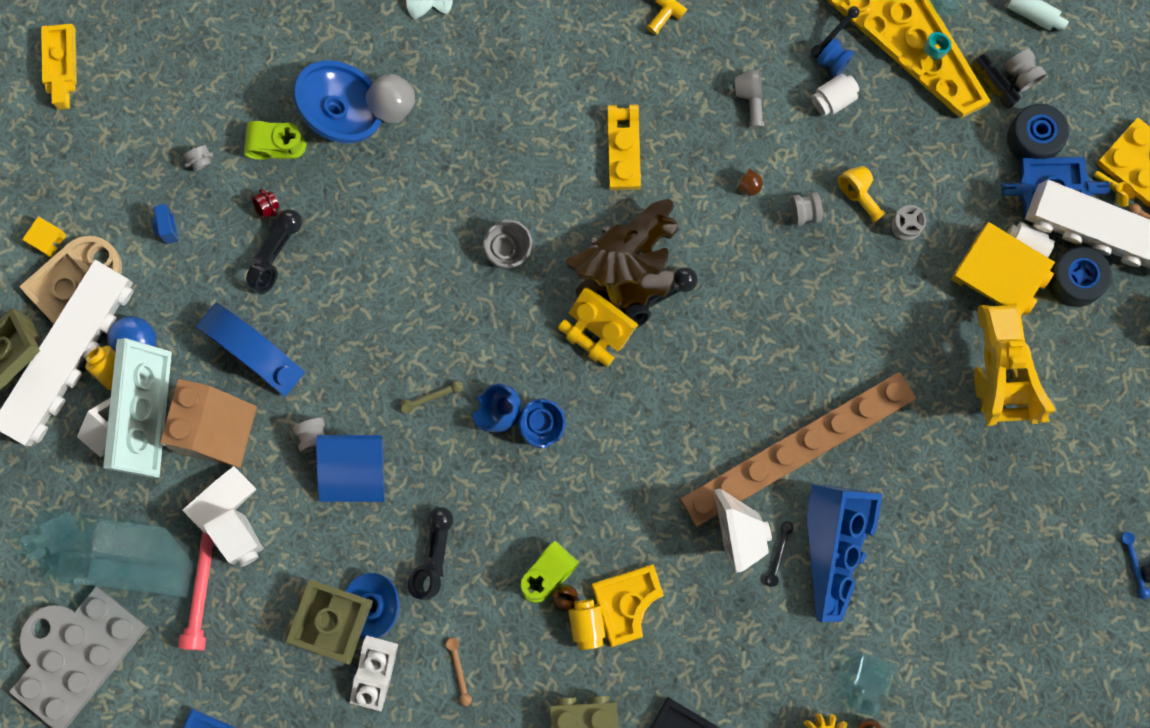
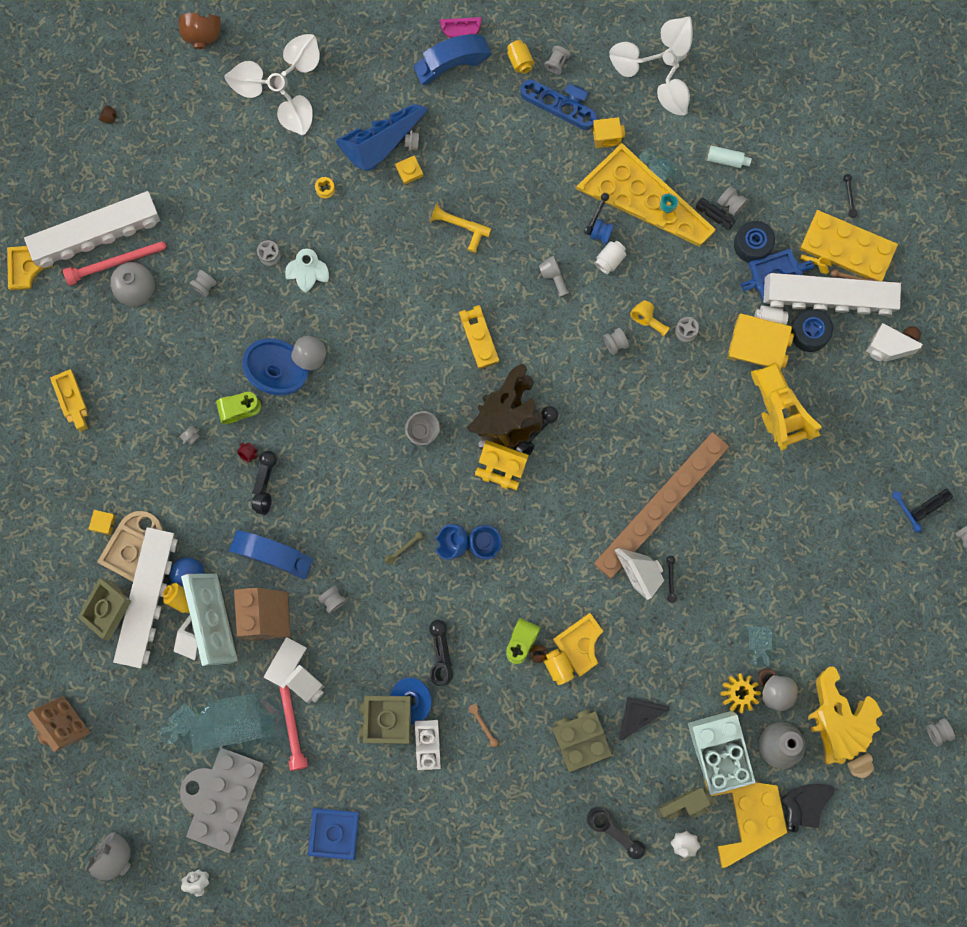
camera: 15 degrees left, 0 degrees up
(164, 224) = (182, 488): blue plate -> none
(350, 468) = (366, 613): blue slope -> none
(751, 183) = (573, 335): reddish brown hinge -> none
(836, 530) = (704, 550): blue wedge -> none

